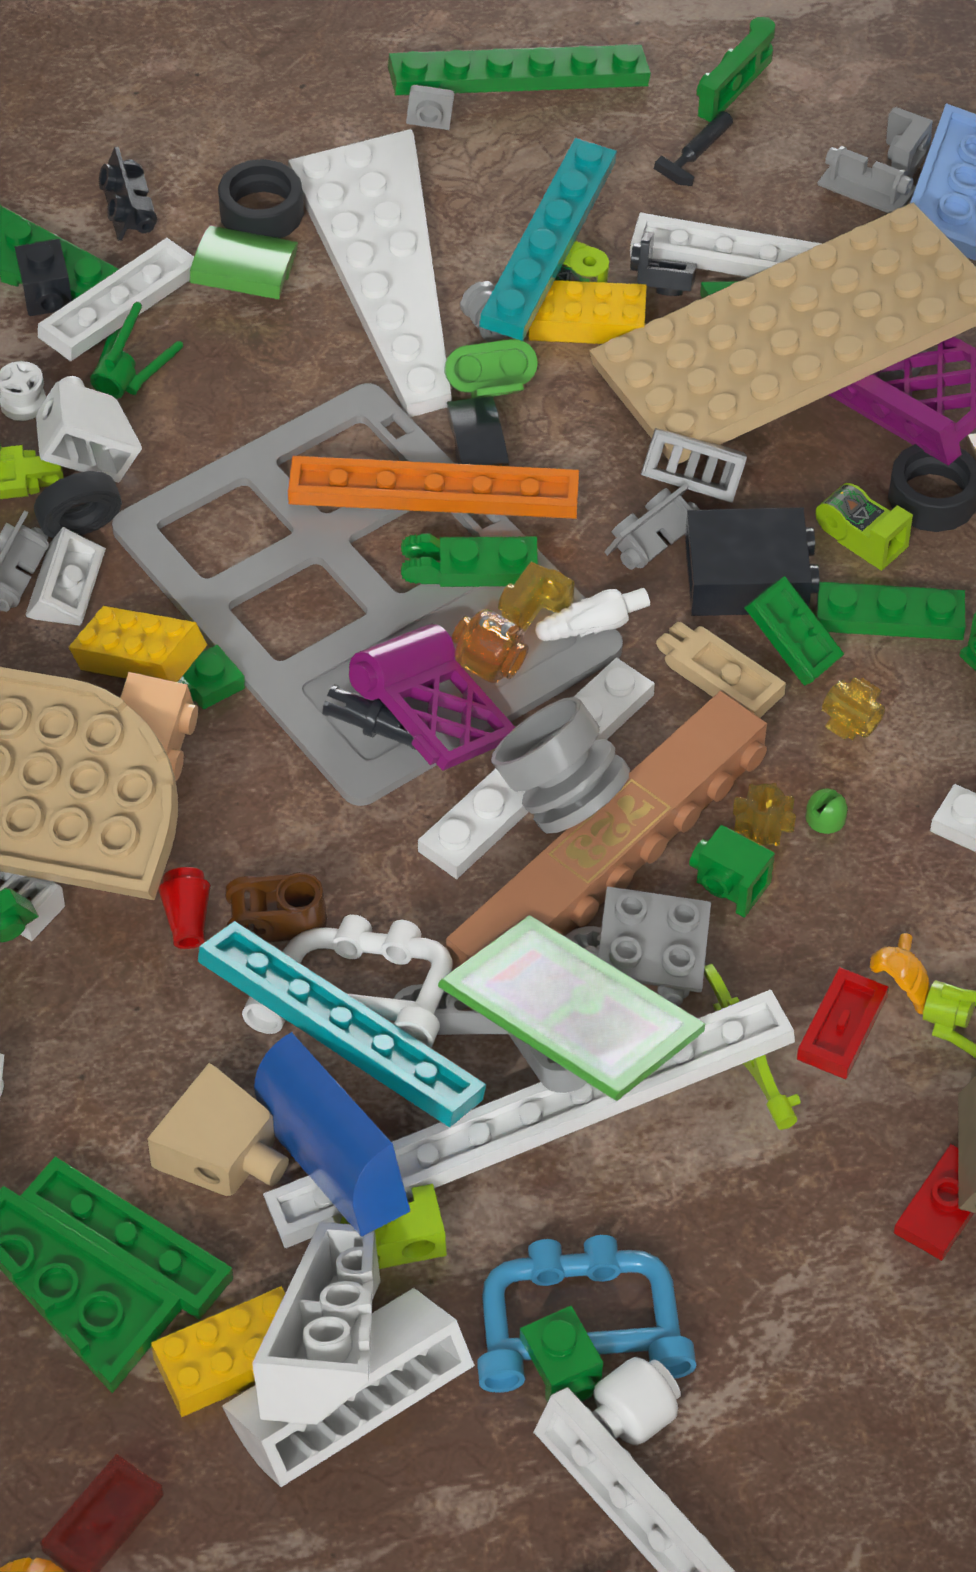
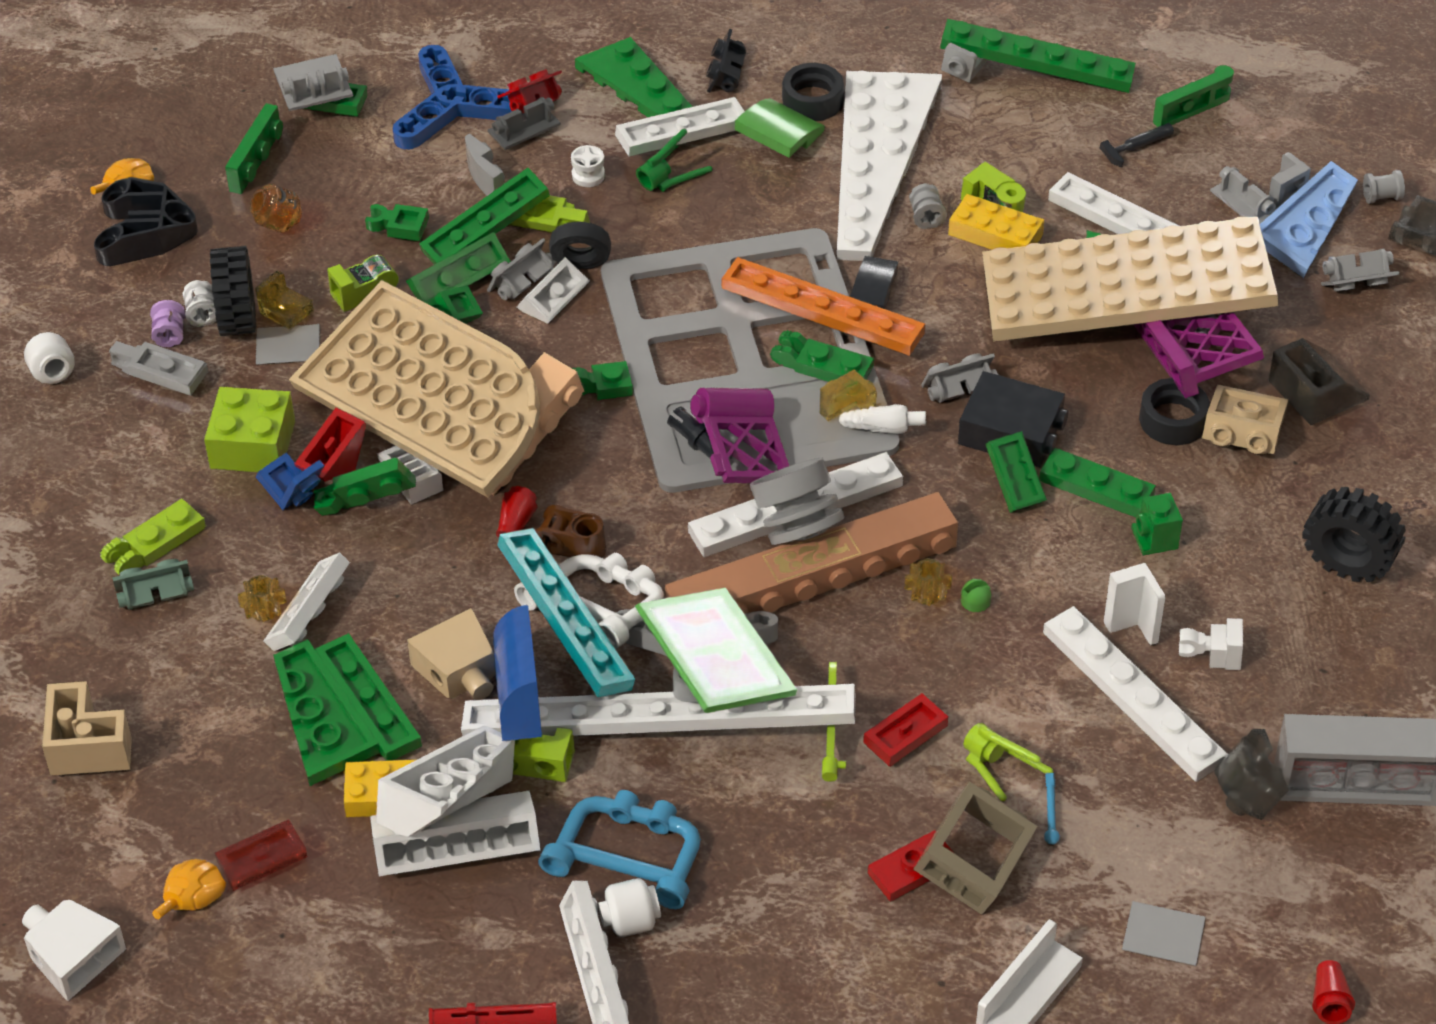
camera: 25 degrees right, 5 degrees down
(43, 276) = (639, 96): black bracket -> none
(85, 430) = (611, 201): white torso -> none
(137, 643) = (571, 343): yellow piece -> none
(489, 646) = (799, 415): clear orange head -> none
(491, 368) = (906, 242): bright green bracket -> none
(547, 239) = (988, 168): teal plate -> none
(563, 1354) = (597, 861): green bracket -> none
(656, 940) = (805, 634): light grey hinge -> none
(667, 276) = (1064, 219): black bracket -> none
(720, 667) = (954, 483): tan hinge -> none
(730, 476) = (1024, 339): light grey slope -> none
(733, 868) = (887, 609): green brick -> none
(853, 708) = (1028, 534): clear yellow gear -> none
(865, 525) = (1107, 419): lime leg -> none
(905, 969) = (963, 708): light orange piece -> none

